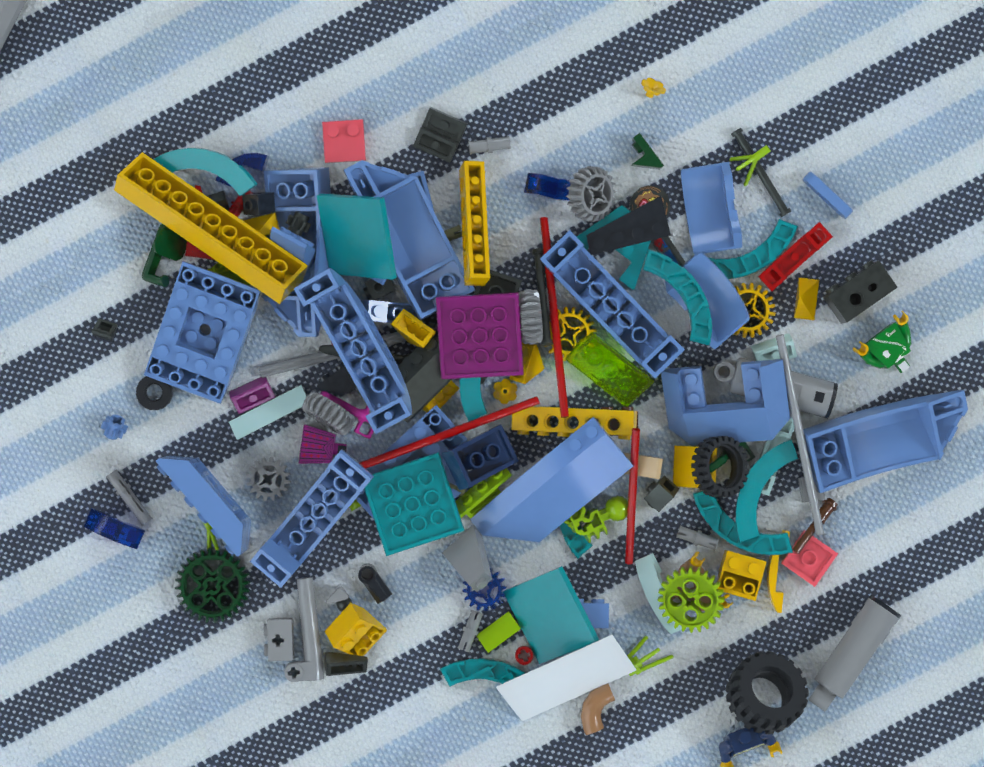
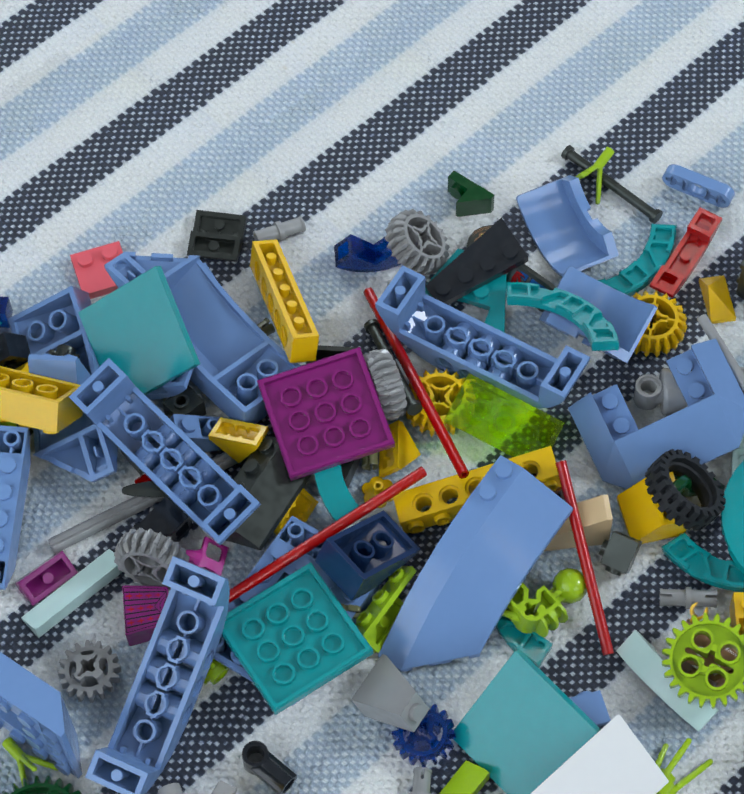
camera: 15 degrees left, 30 degrees down
(653, 87) = (454, 133): yellow plant -> none

